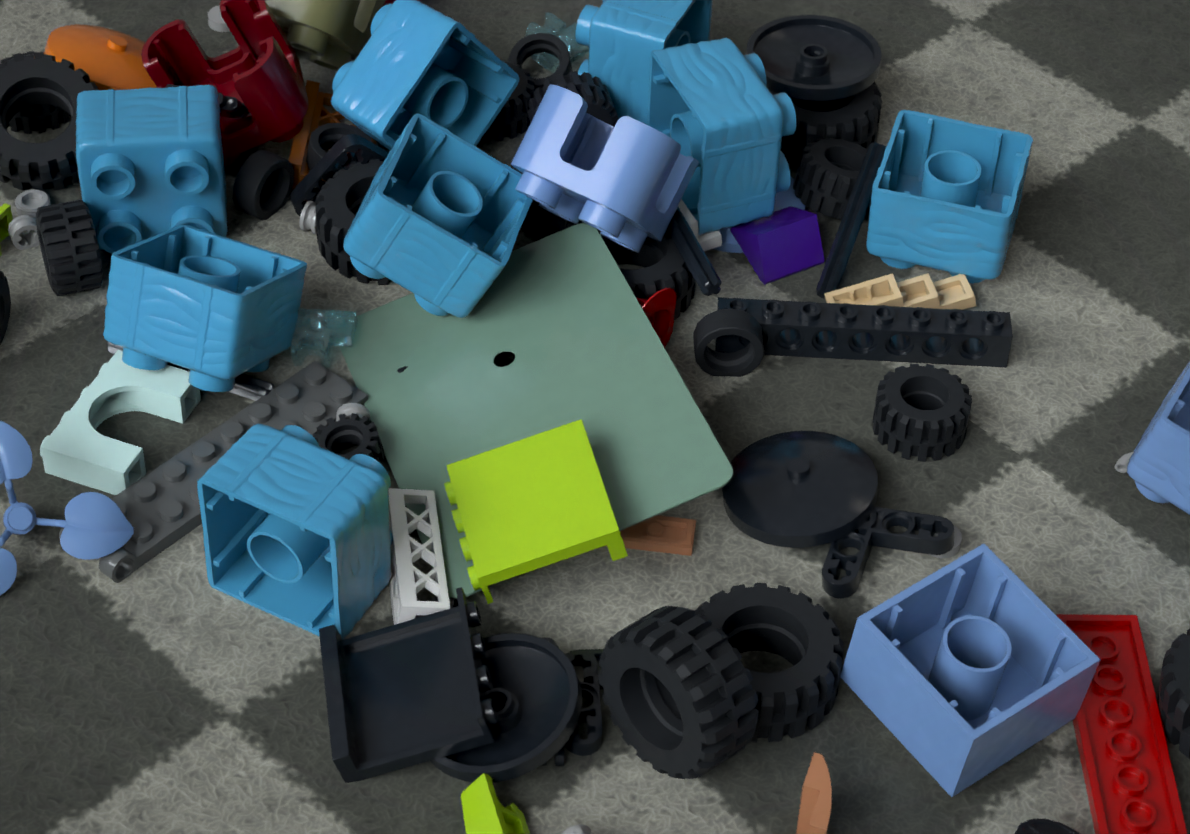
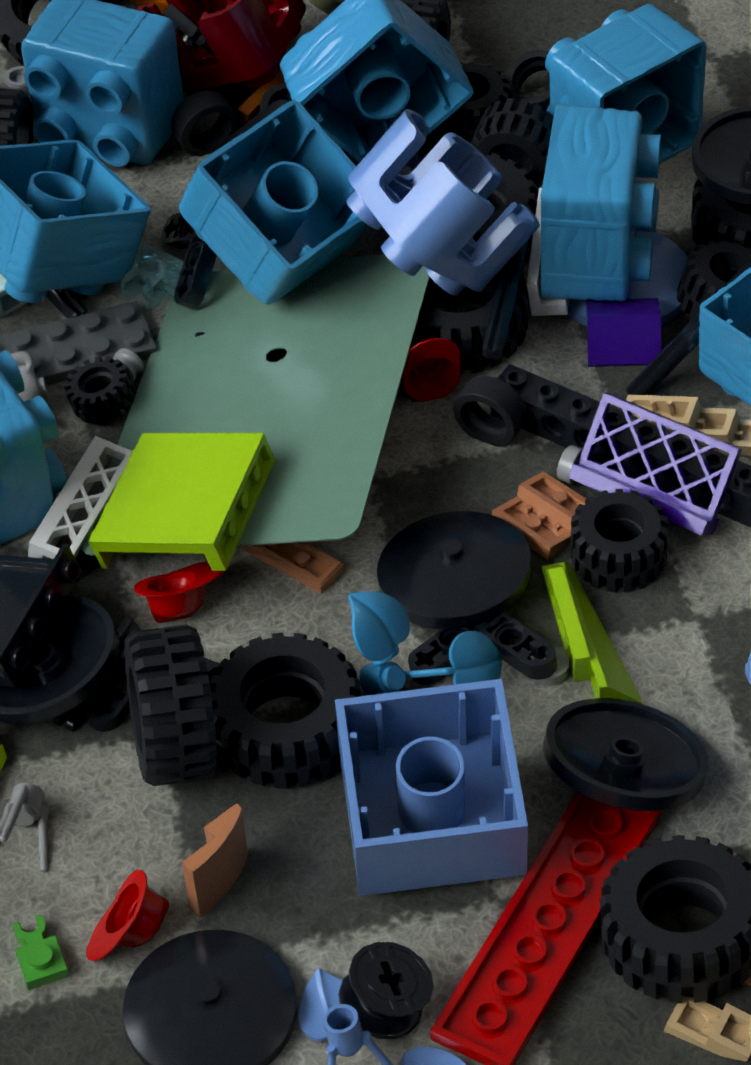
camera: 35 degrees right, 5 degrees up
(365, 325) = (197, 263): none -> black beam
(573, 595) = (178, 592): none -> red piece
(825, 366) = (569, 456): none -> light grey tile
(829, 549) = (382, 623): none -> dark azure plant
(835, 412) = (542, 513): none -> nougat slope
(877, 366) = (677, 509): none -> fence
(942, 500) = (584, 637): none -> lime wedge
(1086, 581) = (625, 754): none -> black dish

